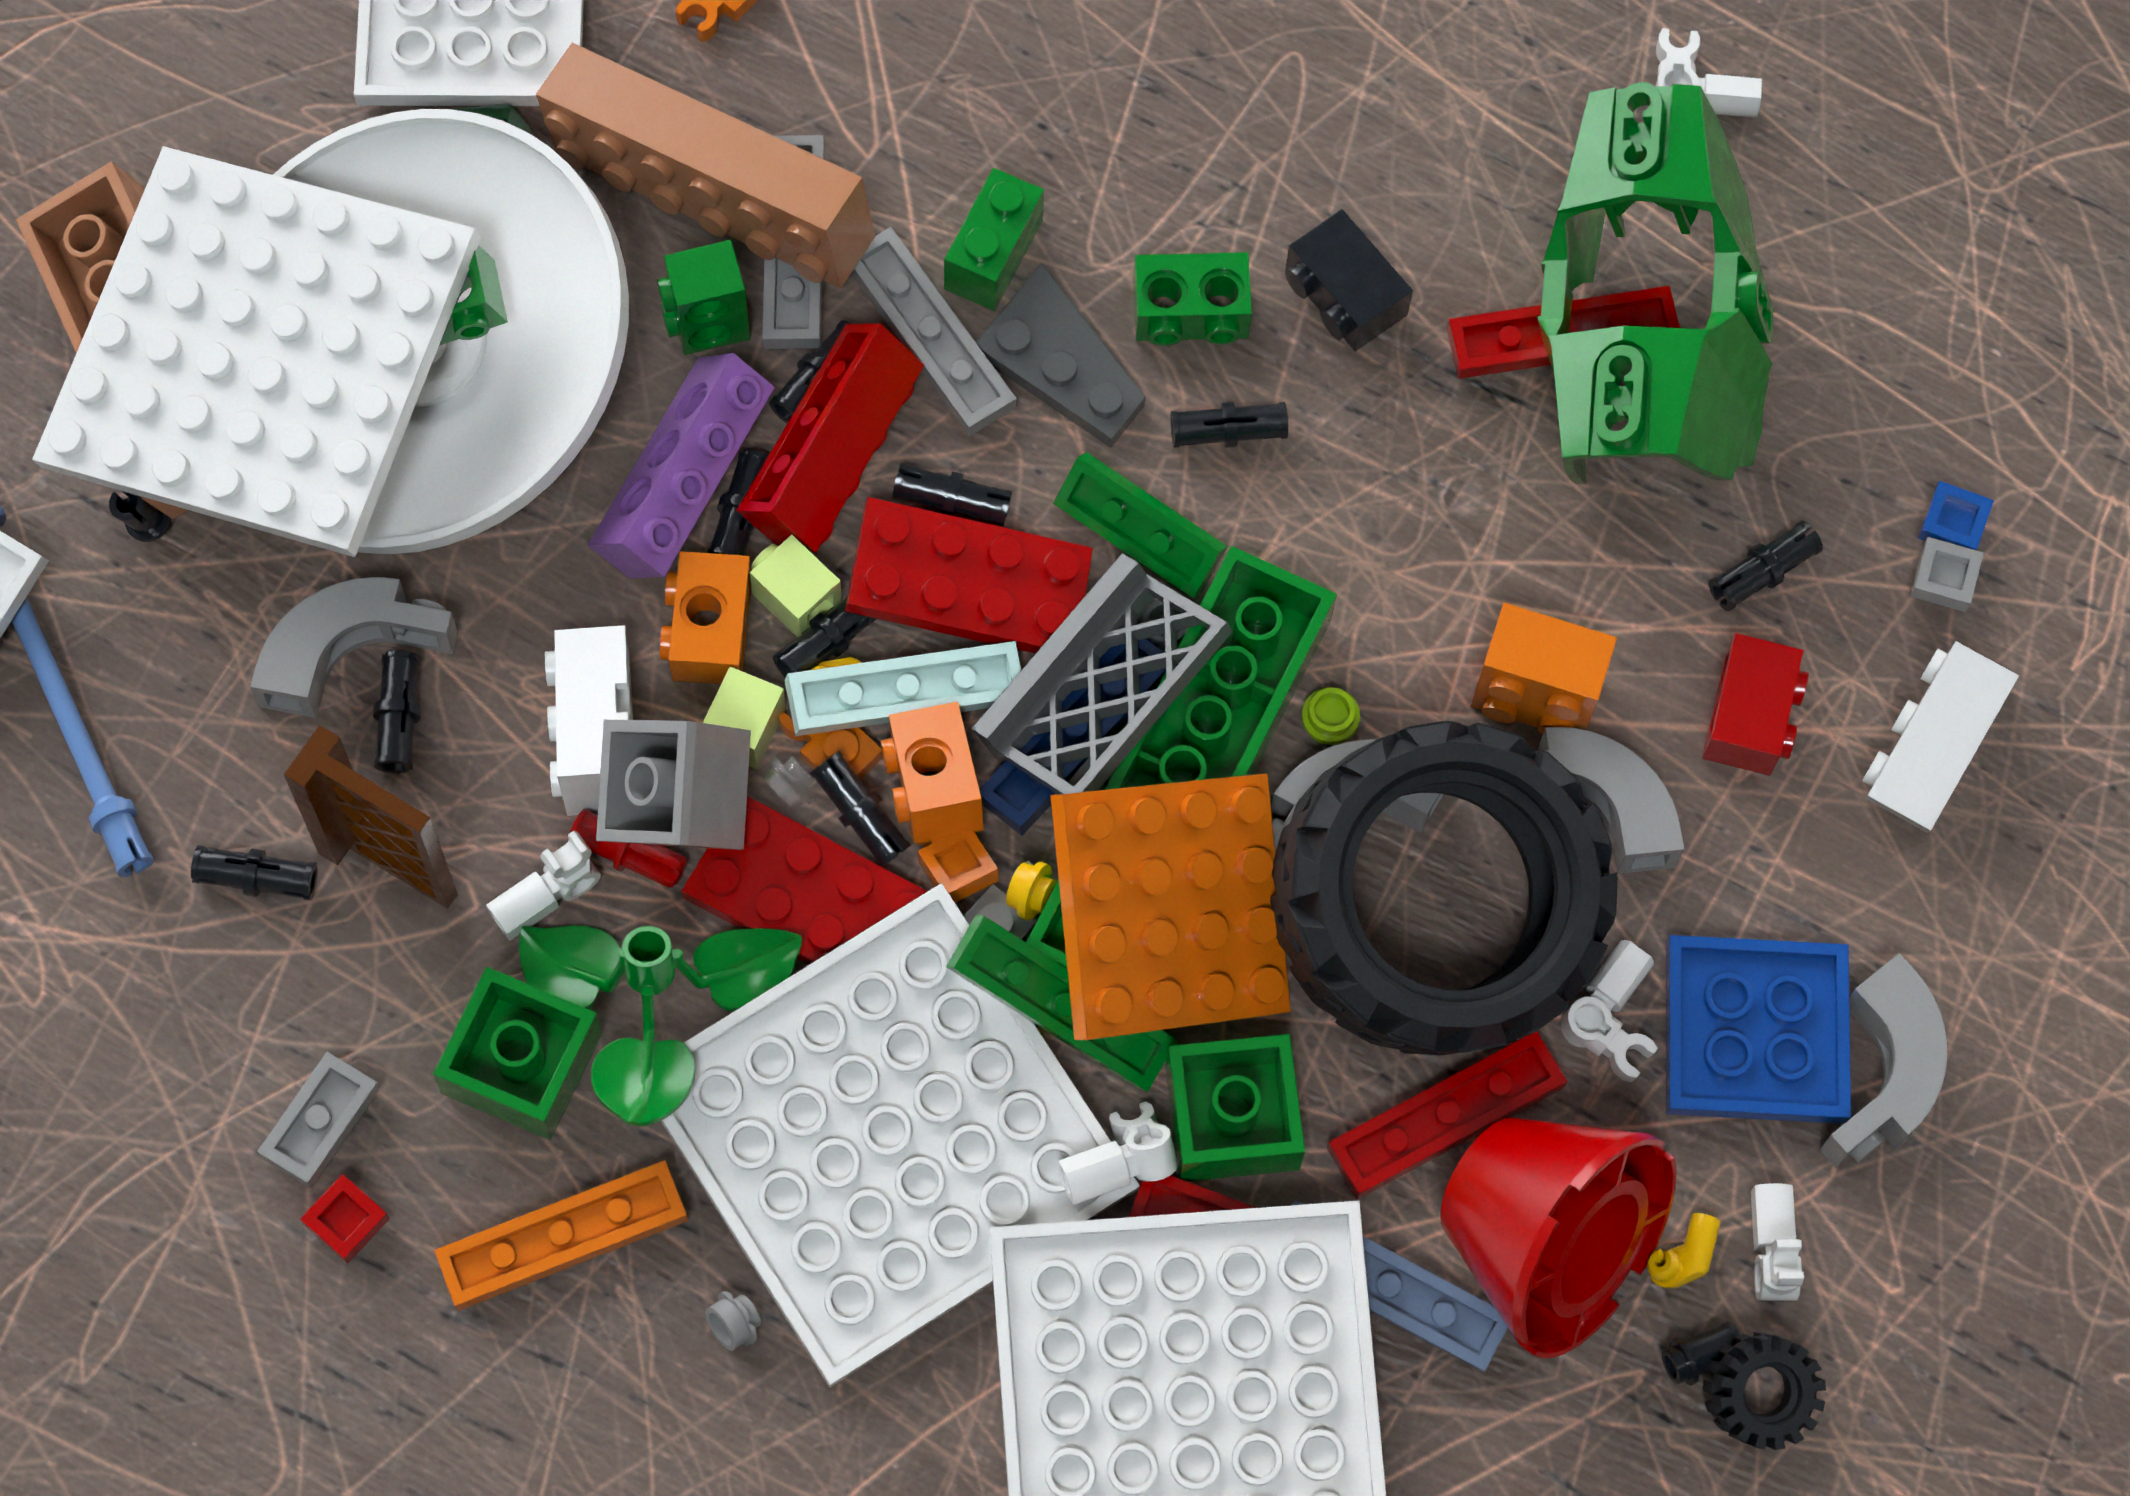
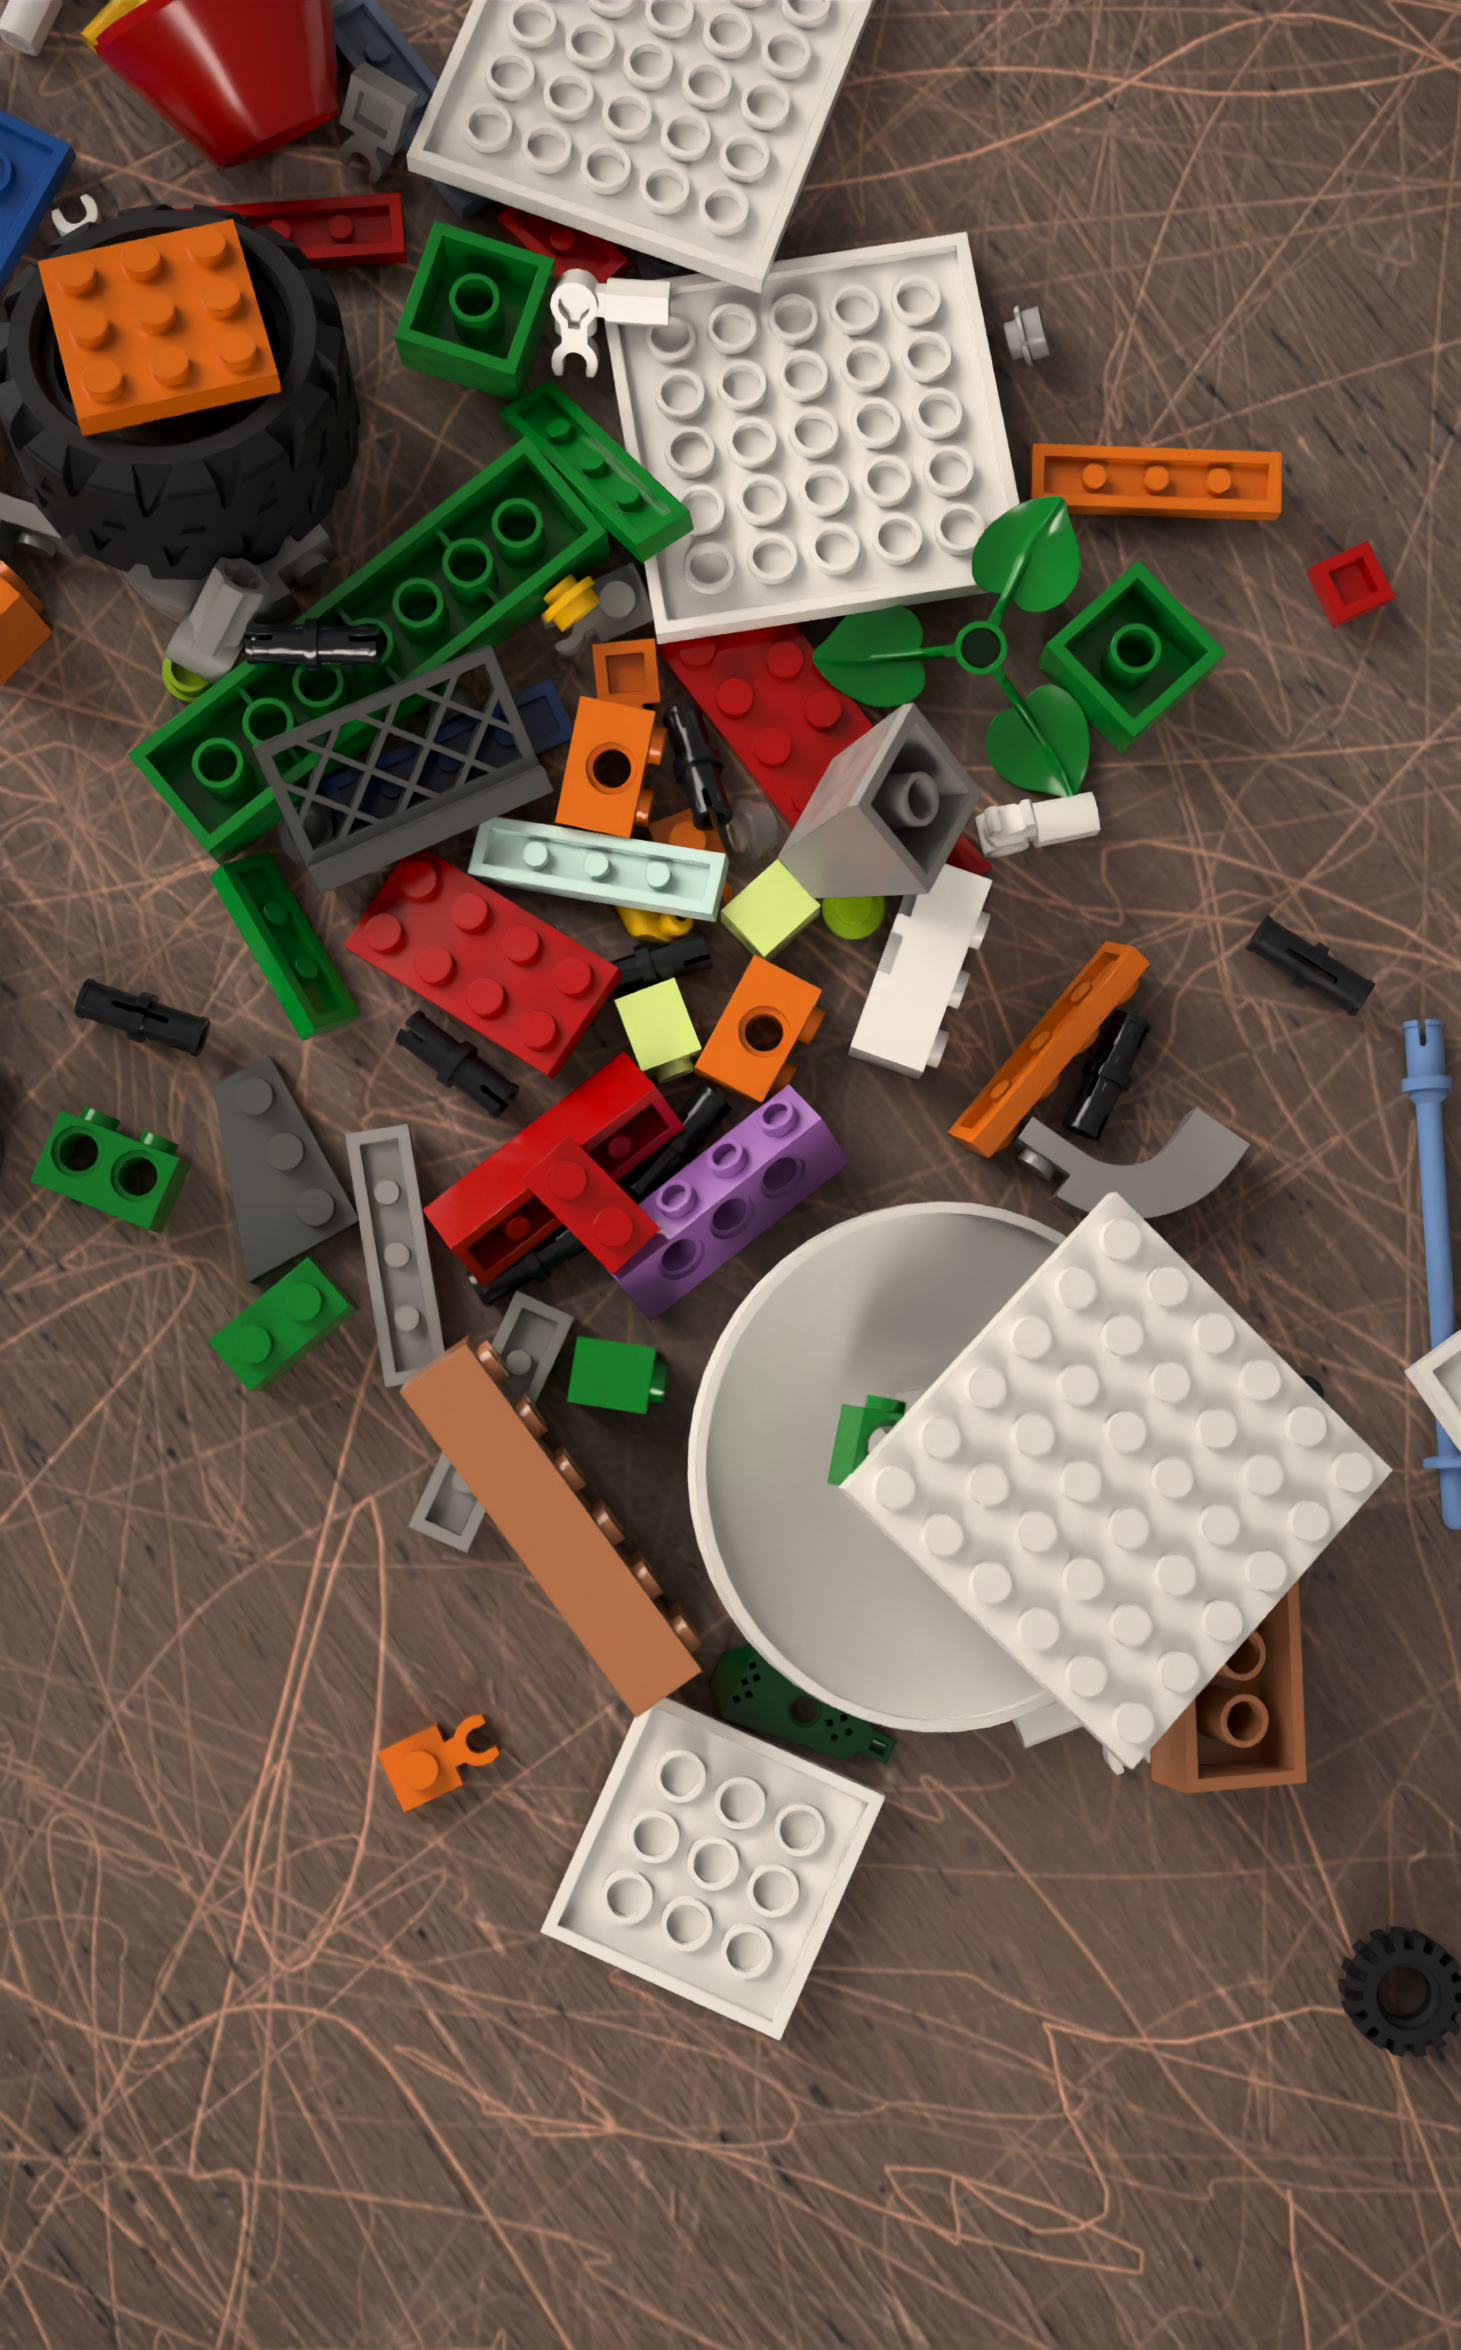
camera: 155 degrees left, 15 degrees up
(318, 1120) = (1339, 690): light grey plate -> none
(358, 815) = (1195, 905): reddish brown fence -> none
(456, 704) = (1061, 1034): none -> orange plate
(780, 396) = (591, 1204): none -> red plate
(1169, 905) = (449, 500): orange plate -> none
(1224, 736) = (313, 644): none -> black pin
(1316, 728) = (215, 628): none -> light grey piece
(1408, 1239) = (379, 116): none -> light grey plate
(1463, 883) = (158, 327): none -> orange plate

